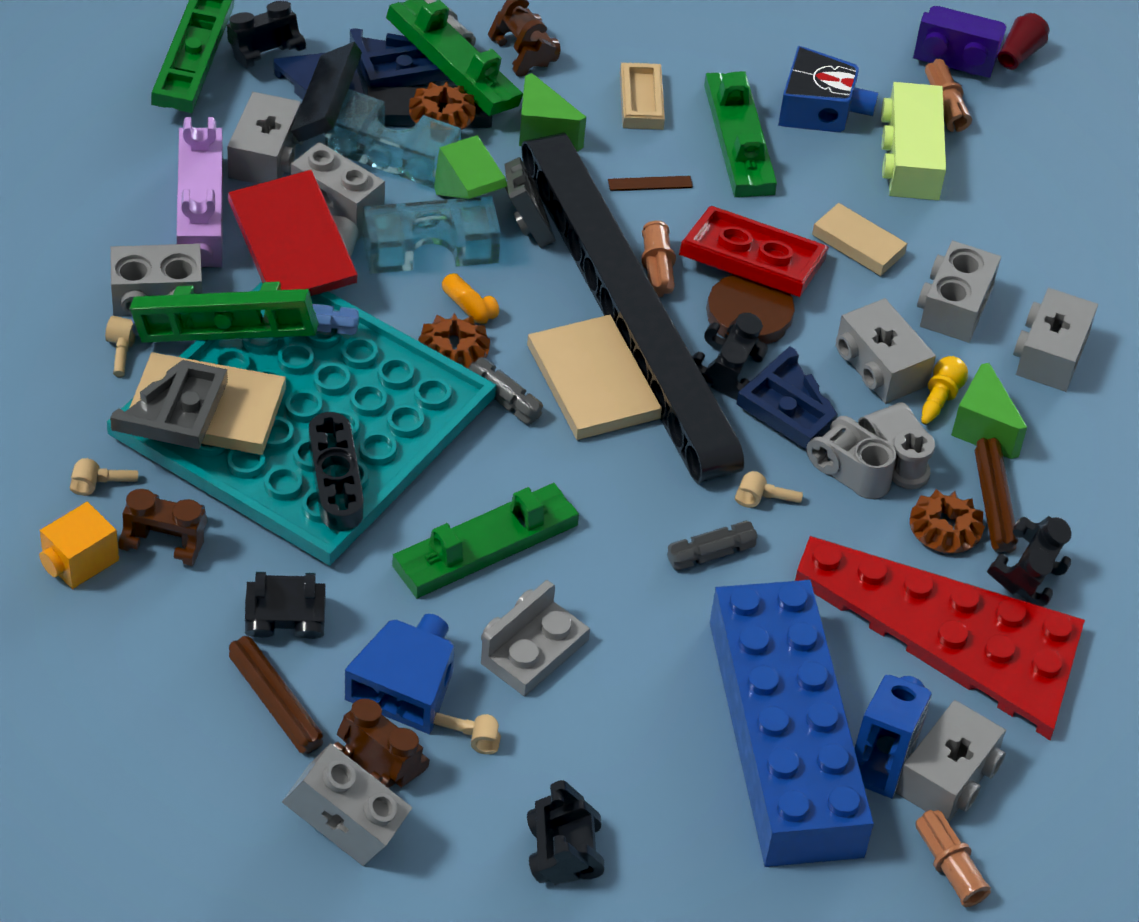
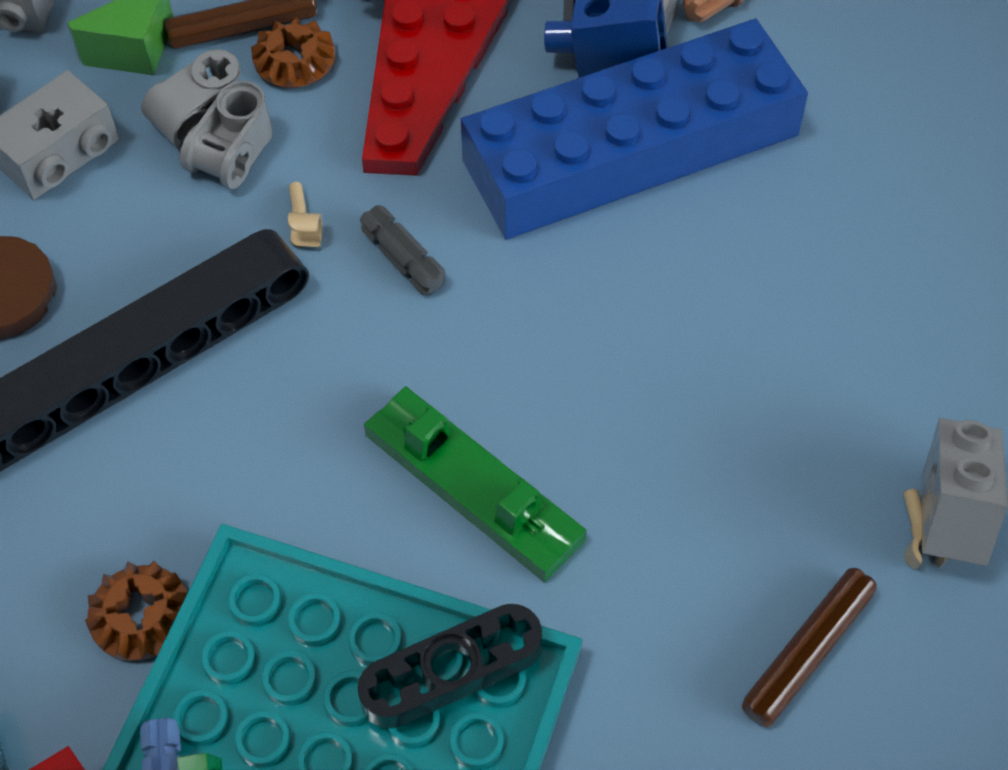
camera: 100 degrees left, 10 degrees up
(285, 604) = (682, 654): black piece -> none
(380, 746) = (843, 499): reddish brown piece -> none
(404, 671) = (724, 501): blue torso -> none
(469, 300) = (64, 597): light orange arm -> none
(483, 730) = (764, 404): tan hand -> none
(509, 392) = (238, 491): dark grey axle -> none
(531, 639) = (613, 390): light grey bracket -> none
(565, 837) = (875, 286): black piece -> none
(594, 377) = (158, 431): tan tile -> none
(733, 353) = (92, 277): black piece -> none
(788, 400) = (153, 215): dark blue wing -> none
(948, 377) = (95, 79): yellow bar -> none

